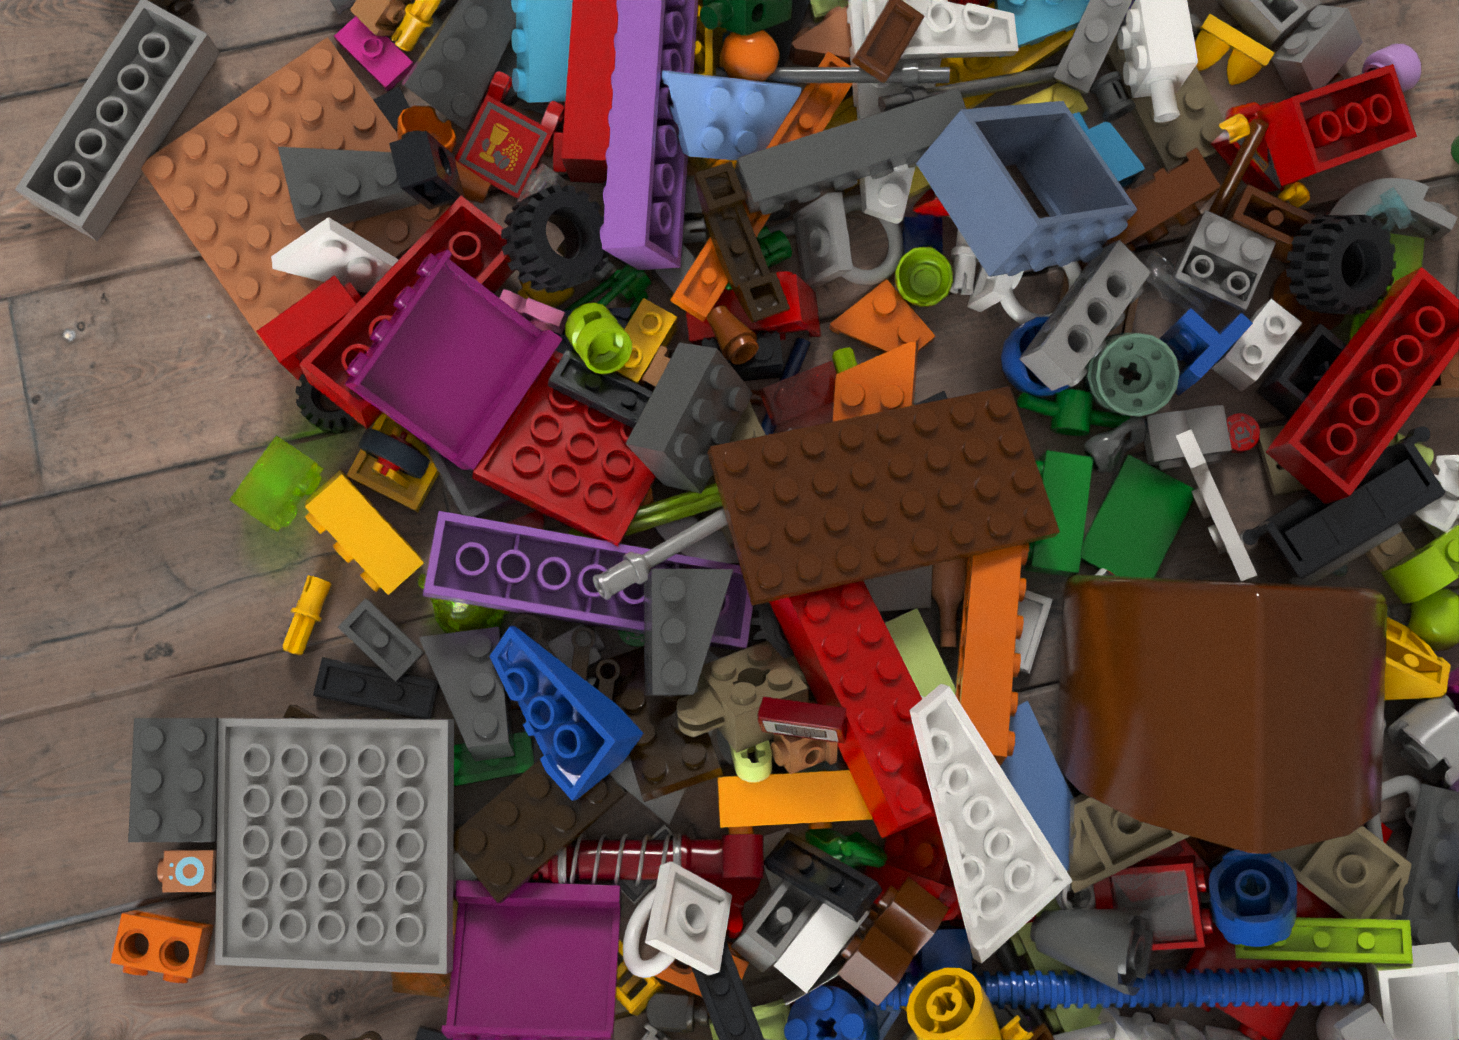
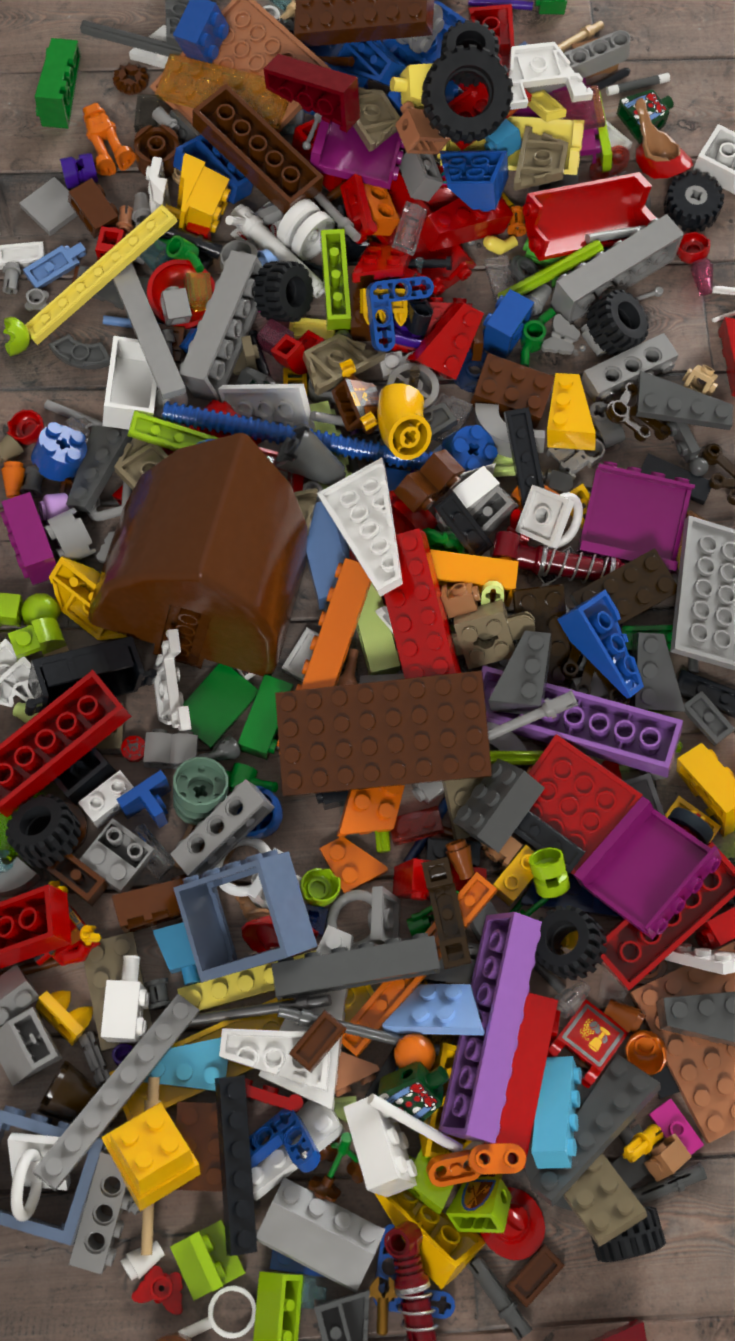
camera: 170 degrees left, 10 degrees down
(426, 169) = (651, 1009): black brick -> none
(537, 313) = (583, 900): bright pink plate -> none
(802, 719) = (463, 601): dark red slope -> none
(1239, 167) = (92, 912): reddish brown bar -> none

